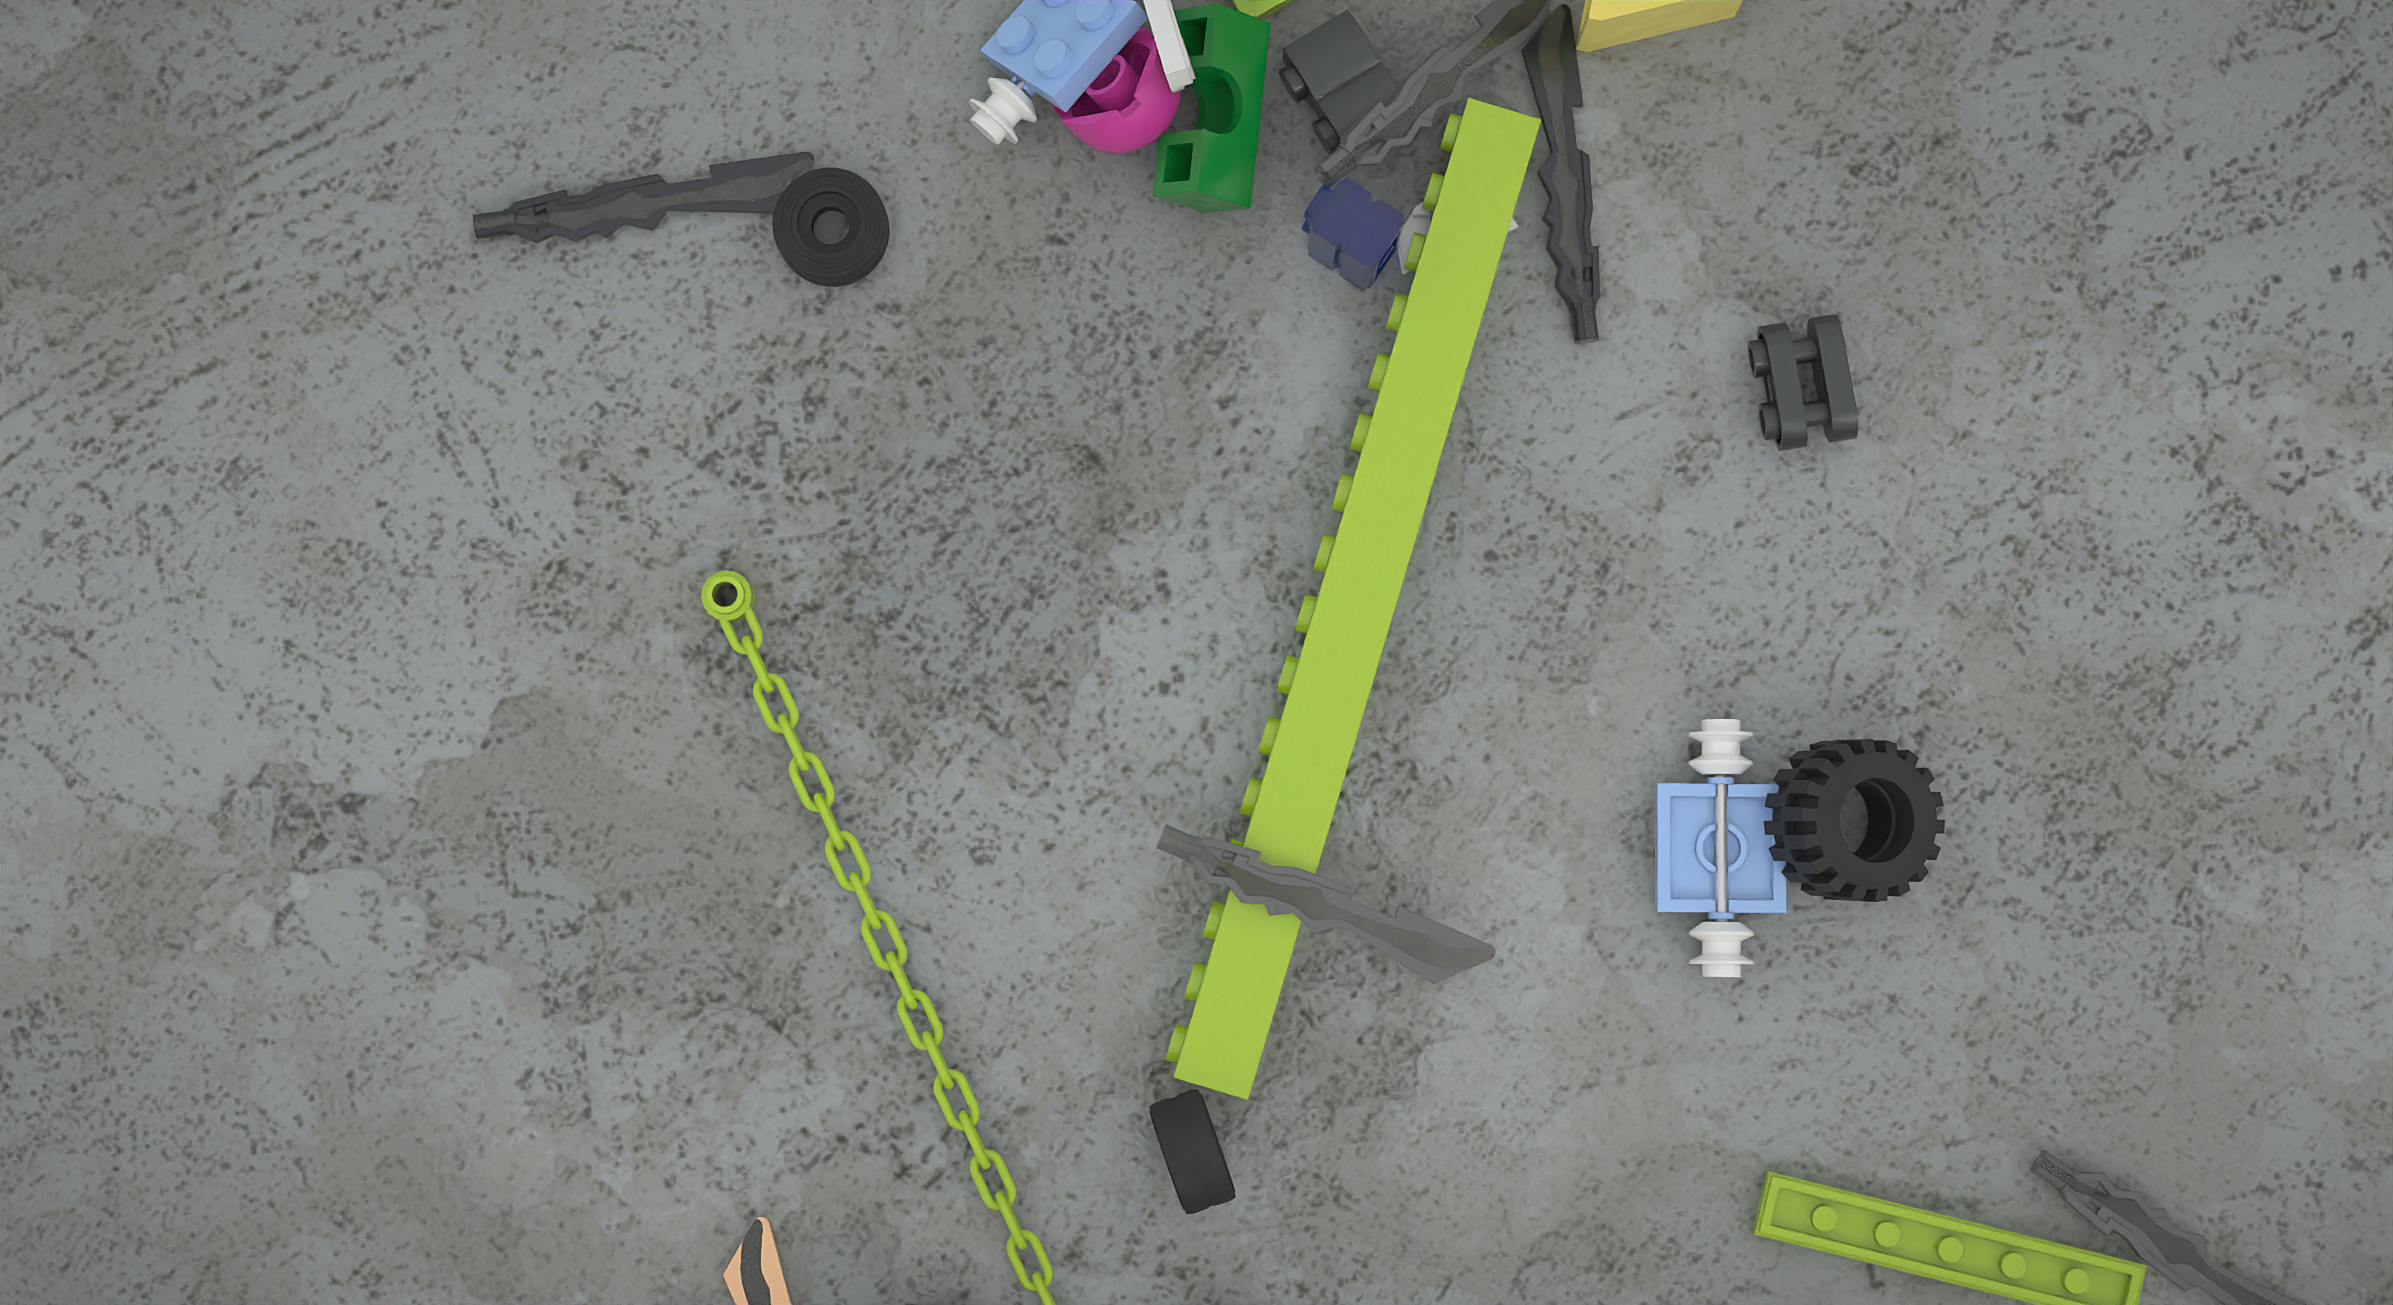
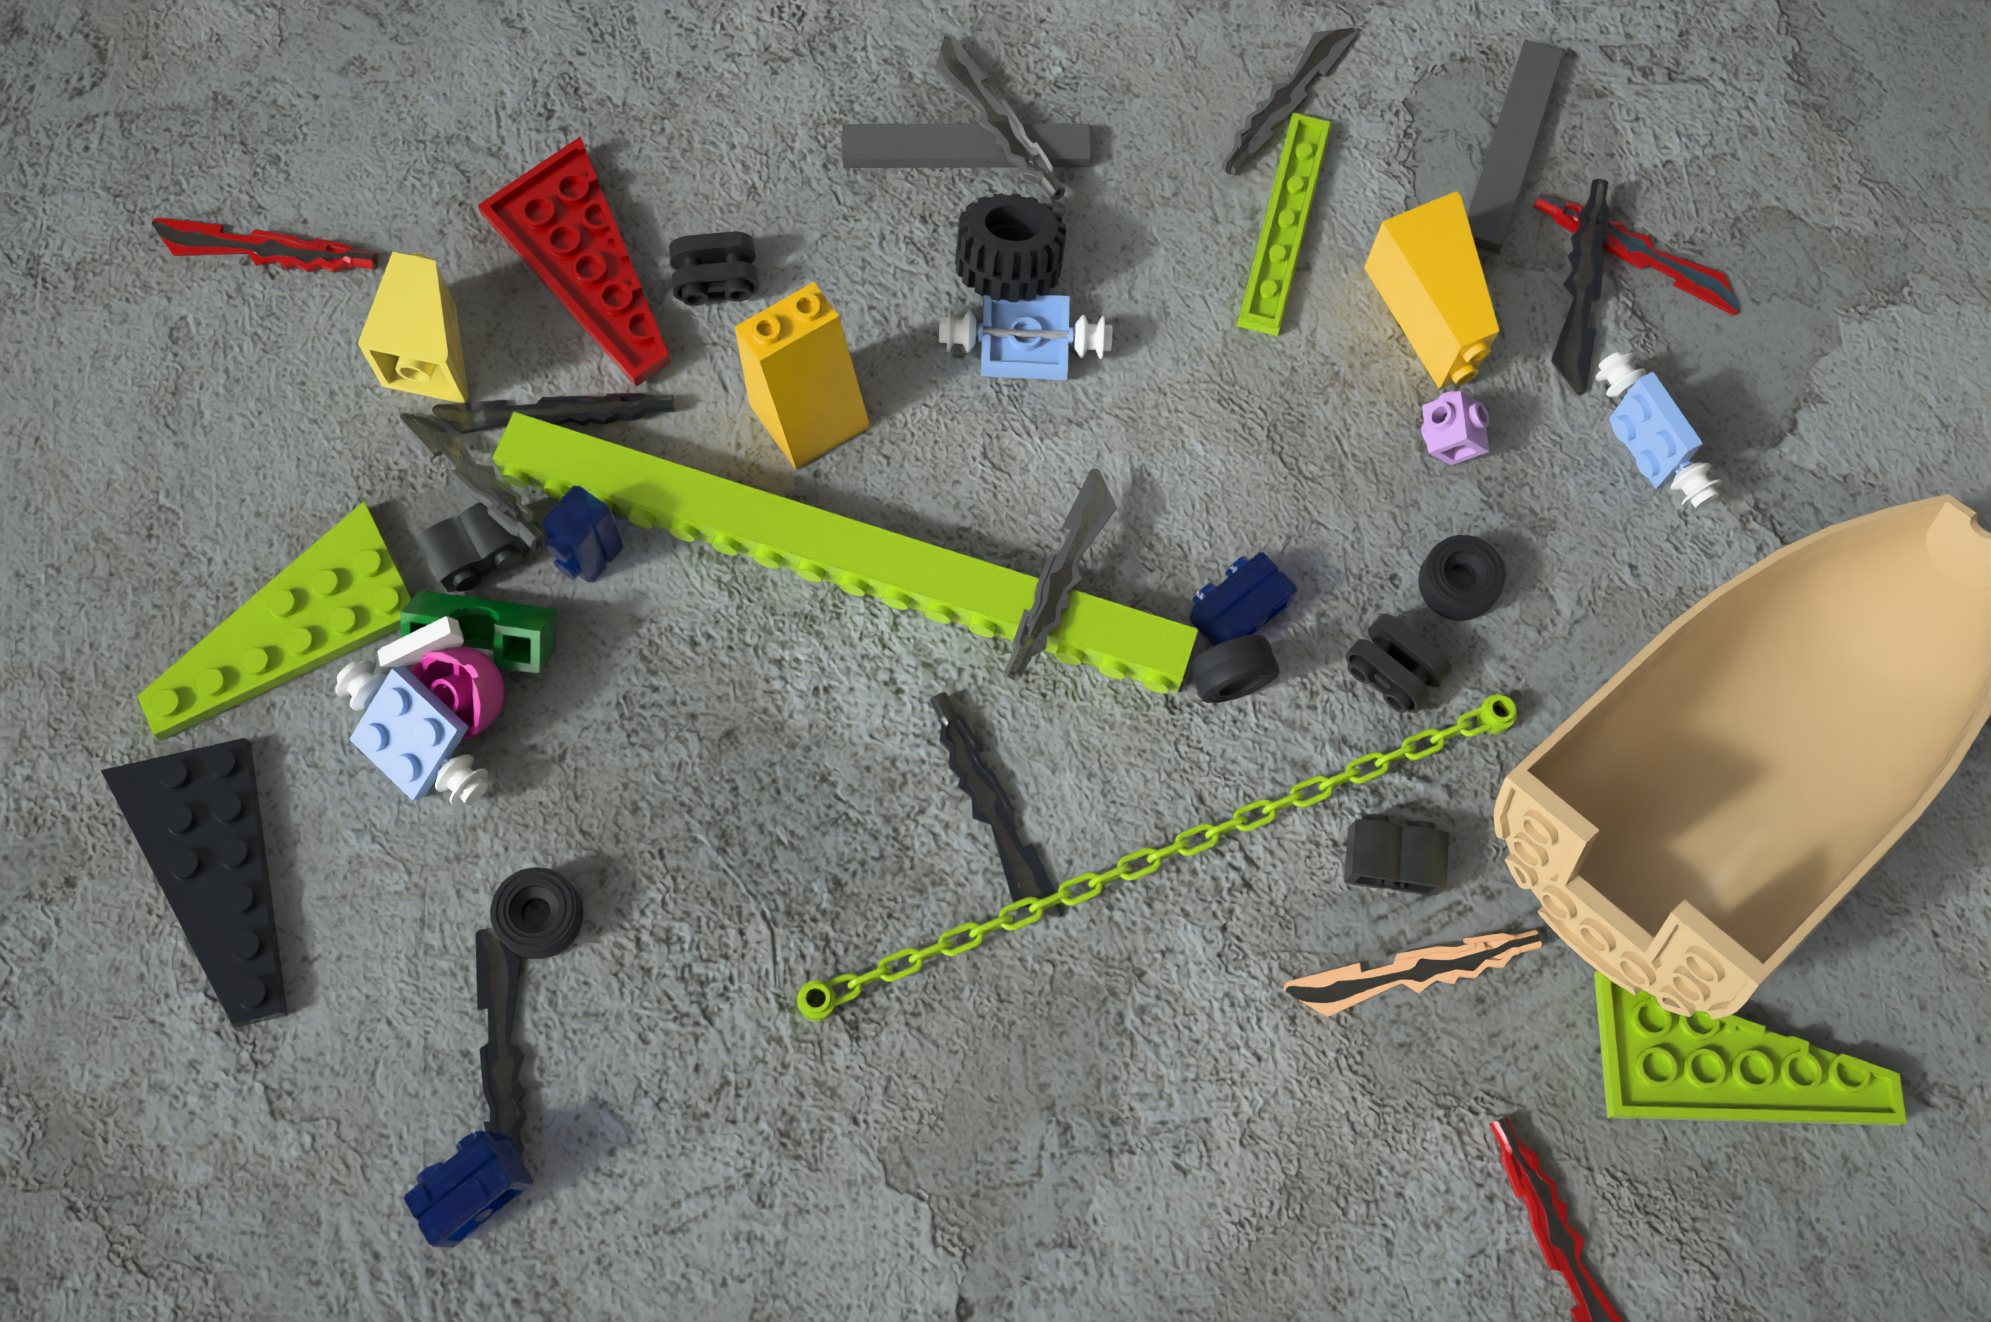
camera: 95 degrees left, 15 degrees down
(476, 180) = (467, 1188): none -> clear blue brick
(999, 818) = (991, 806): none -> black sword
(1303, 1167) = (1242, 601): none -> clear blue brick
(1595, 522) = (801, 375): none -> yellow slope
(1844, 168) = (572, 244): none -> red wing
(2053, 752) = (956, 145): none -> dark grey tile
(2099, 796) = (997, 117): none -> flat silver sword

